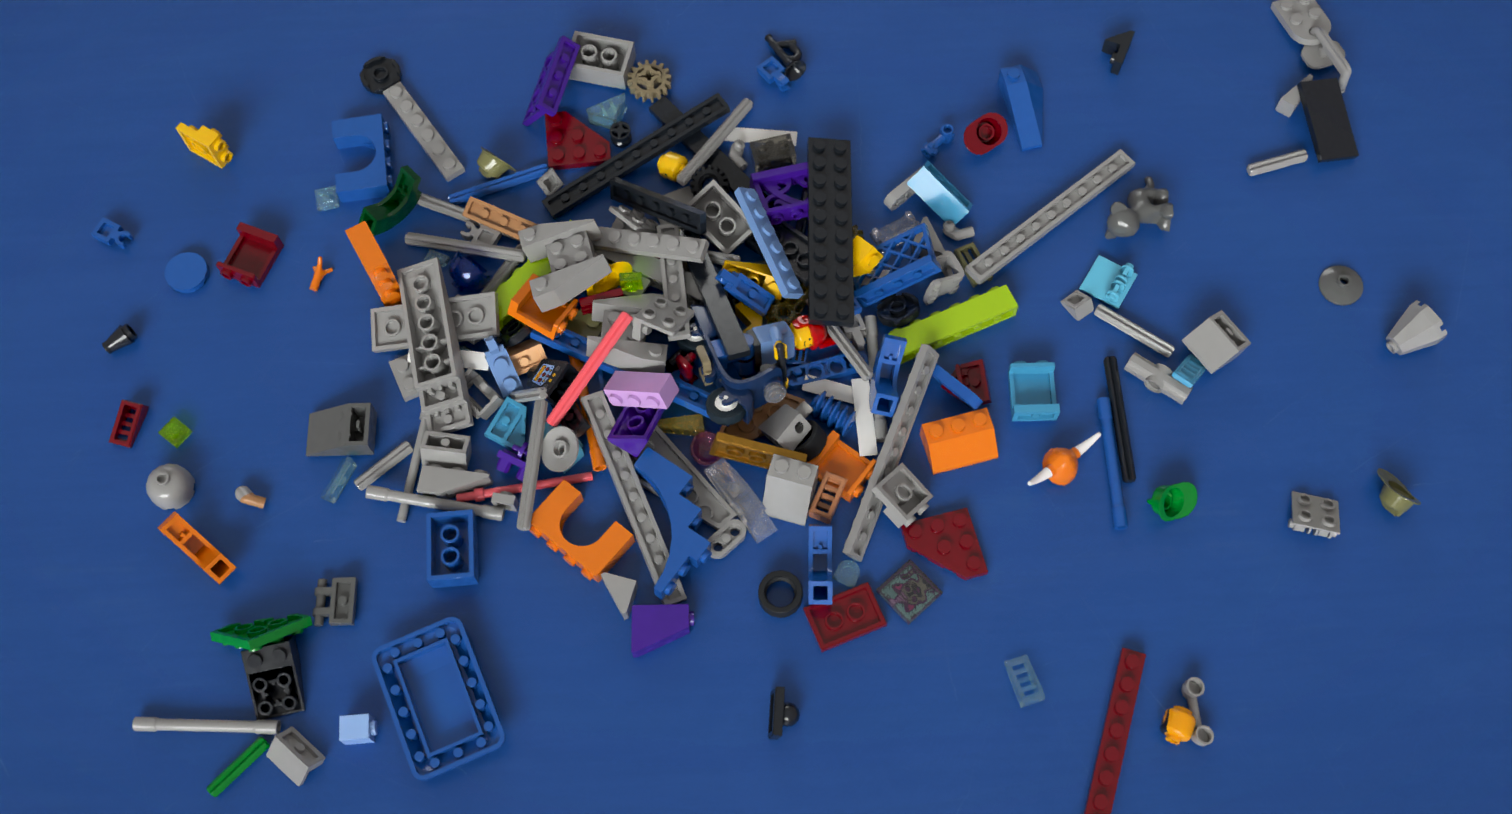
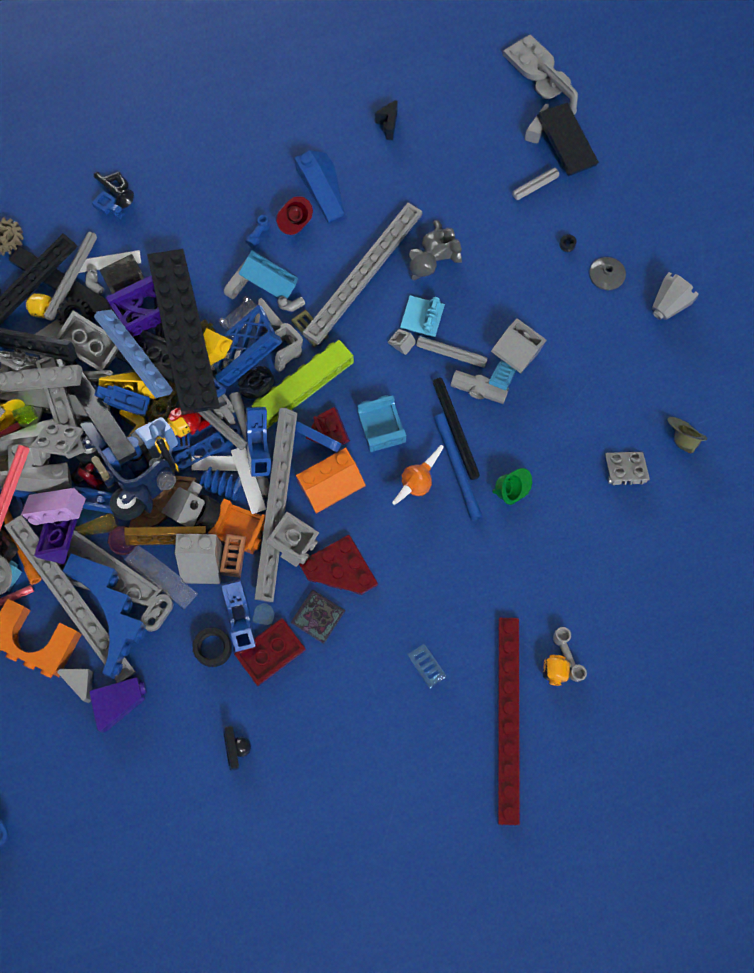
camera: 15 degrees left, 5 degrees up
(1300, 232) = (572, 239): none -> black bush

